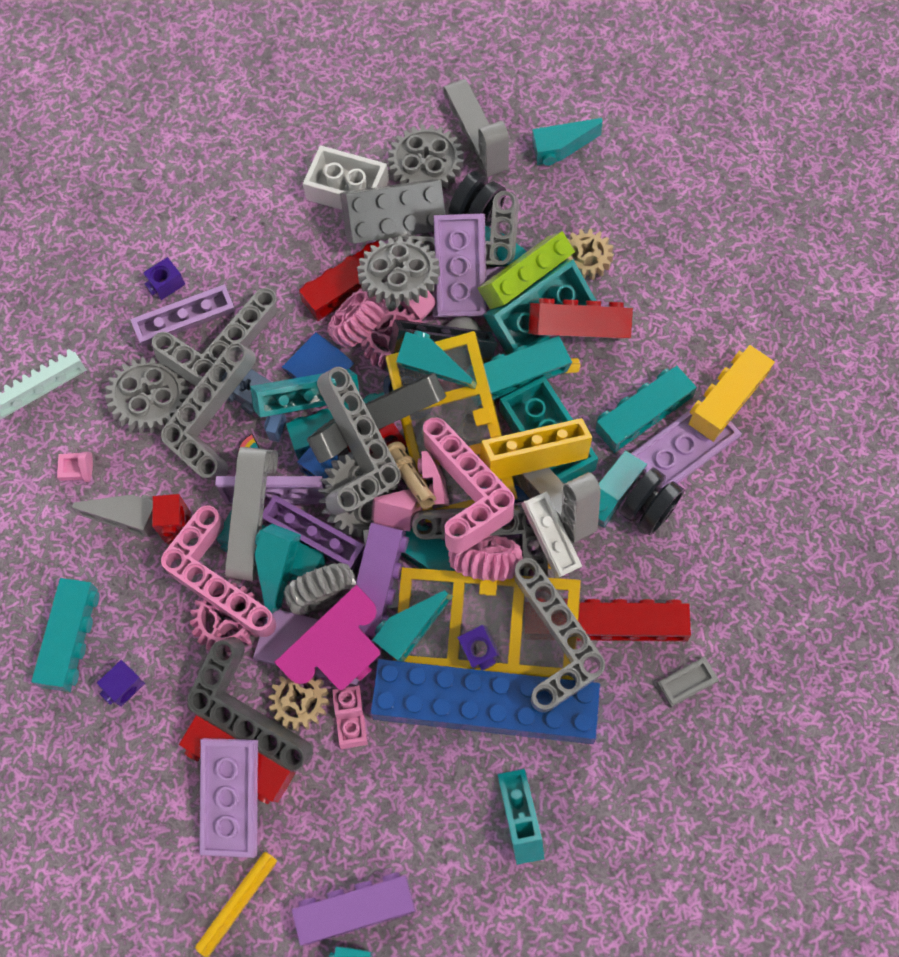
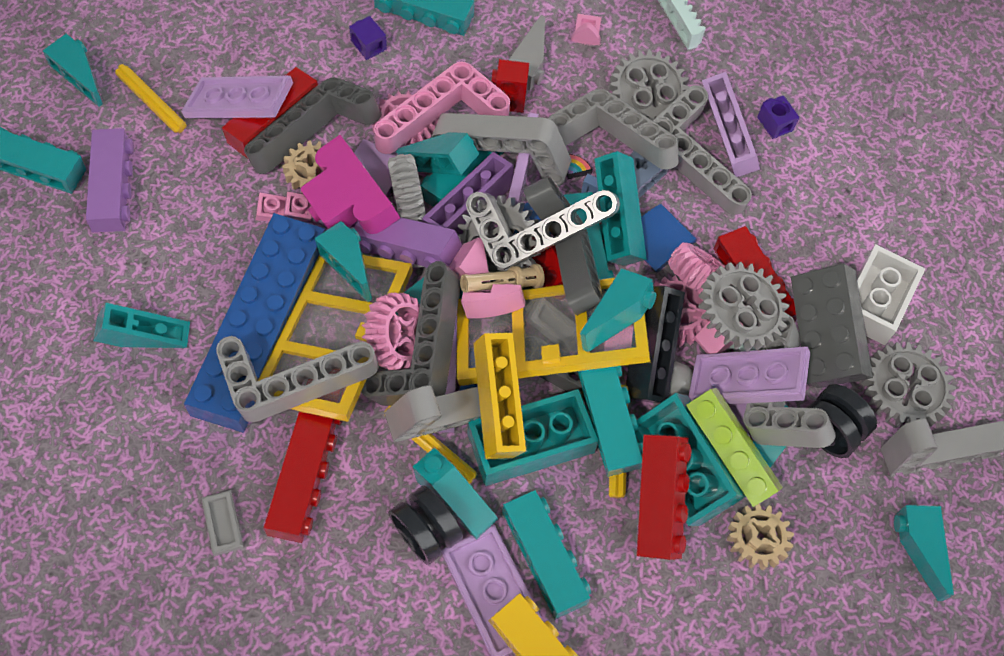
camera: 90 degrees right, 5 degrees down
(439, 441) = (470, 319): bright pink beam -> none
(470, 639) = (305, 311): dark purple brick -> none
(551, 535) = (379, 397): white tile -> none

